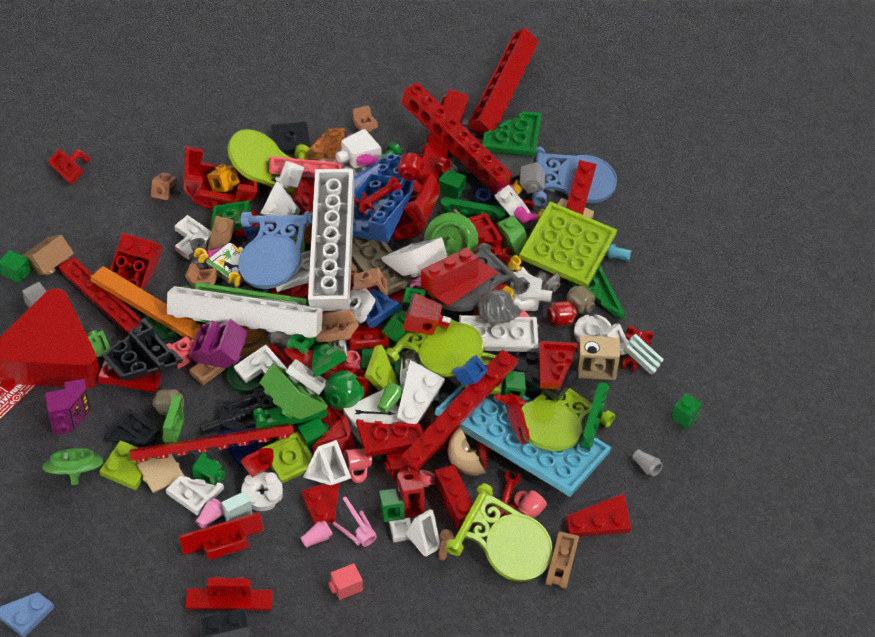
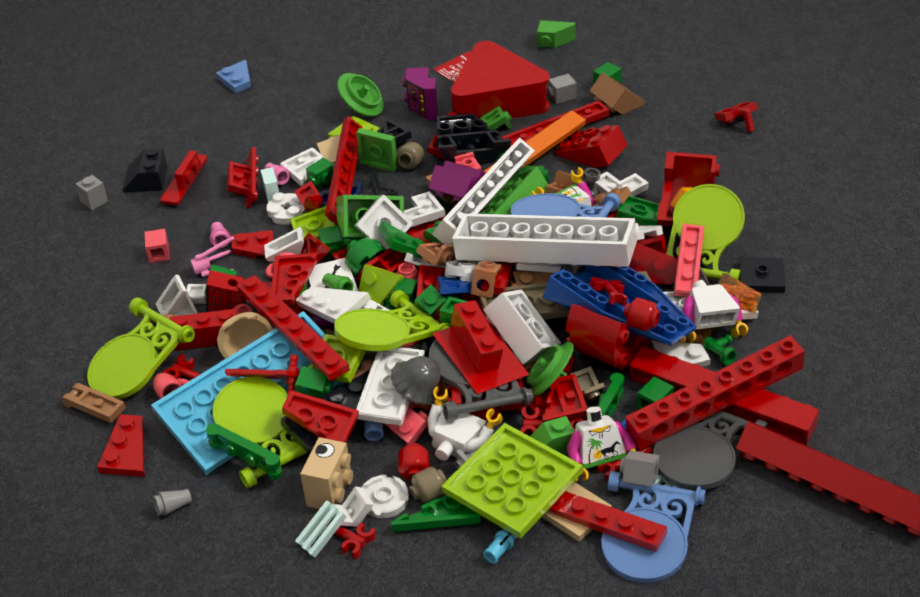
camera: 110 degrees right, 10 degrees down
(290, 175) = (673, 240): white bracket -> none
(363, 119) = (773, 333): nougat bracket -> none
(424, 316) = (418, 303): red torso -> none
(443, 164) = (669, 380): red hinge -> none
(471, 371) = (320, 326): blue panel -> none
(515, 135) = (722, 465): green plate -> none
(686, 411) = (219, 553): green brick -> none

